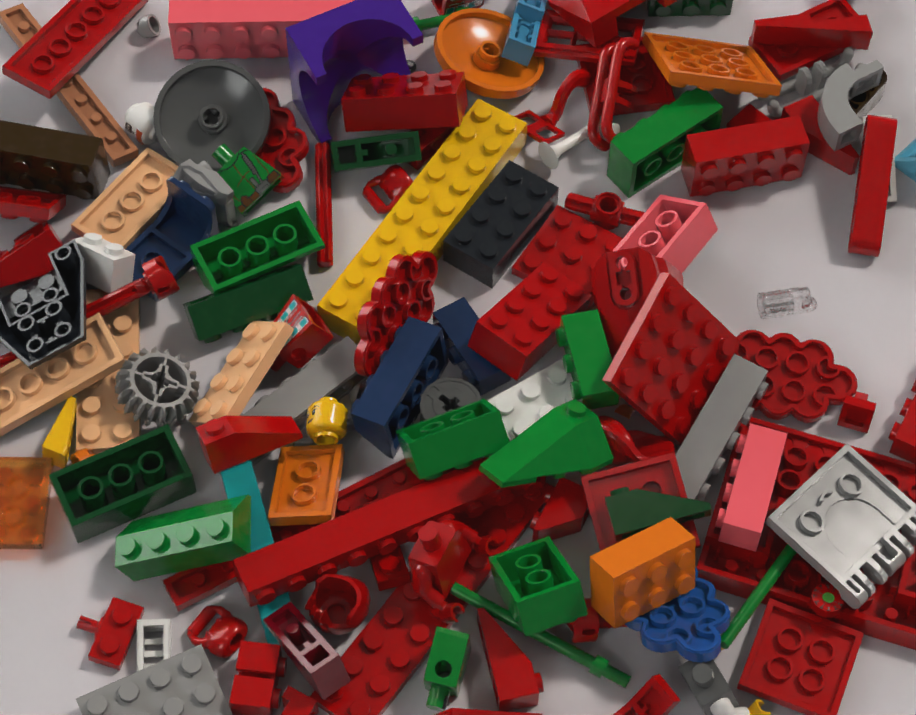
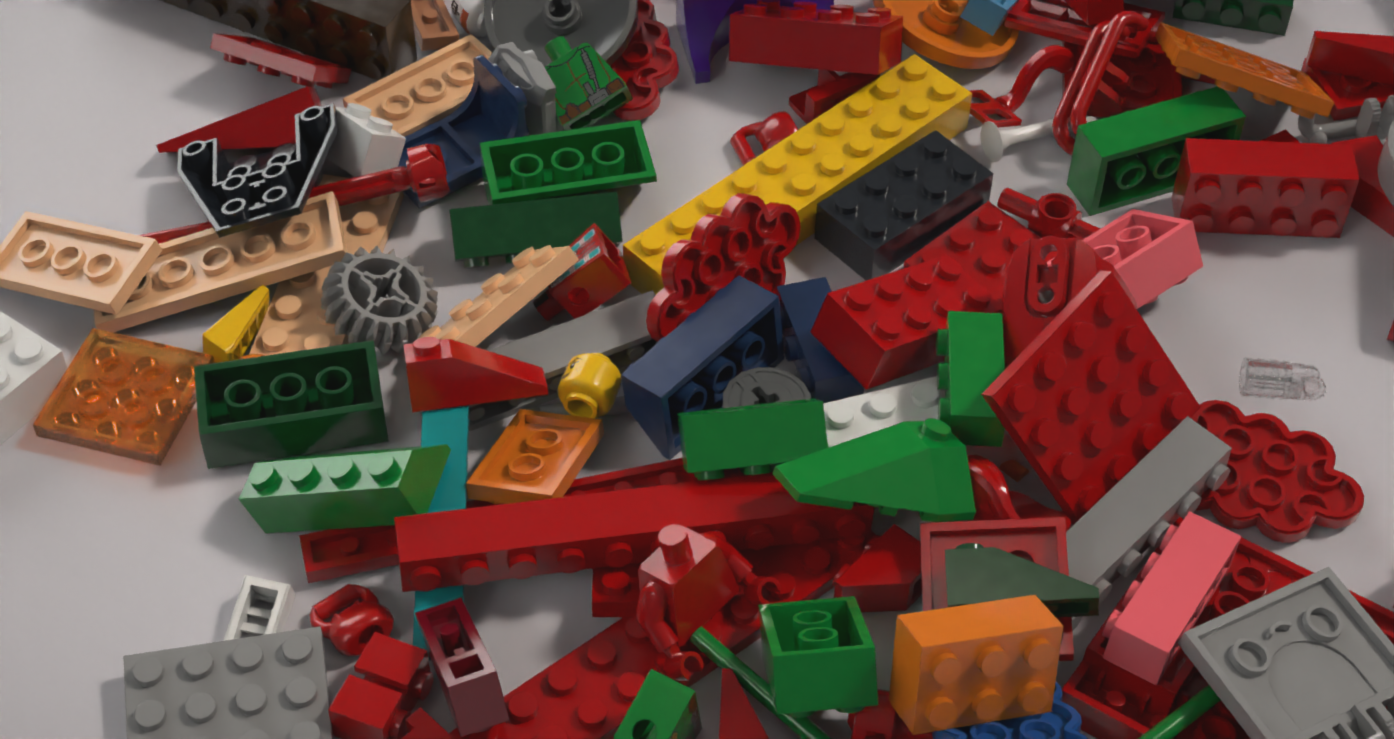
camera: 15 degrees right, 10 degrees down
(112, 633) = (208, 590): red plate -> none
(324, 203) = (675, 143): red axle -> none
(338, 603) = (526, 616): red helmet -> none
(375, 151) = (758, 89): dark green slope -> none
(857, 412) = (1354, 540): red tile -> none

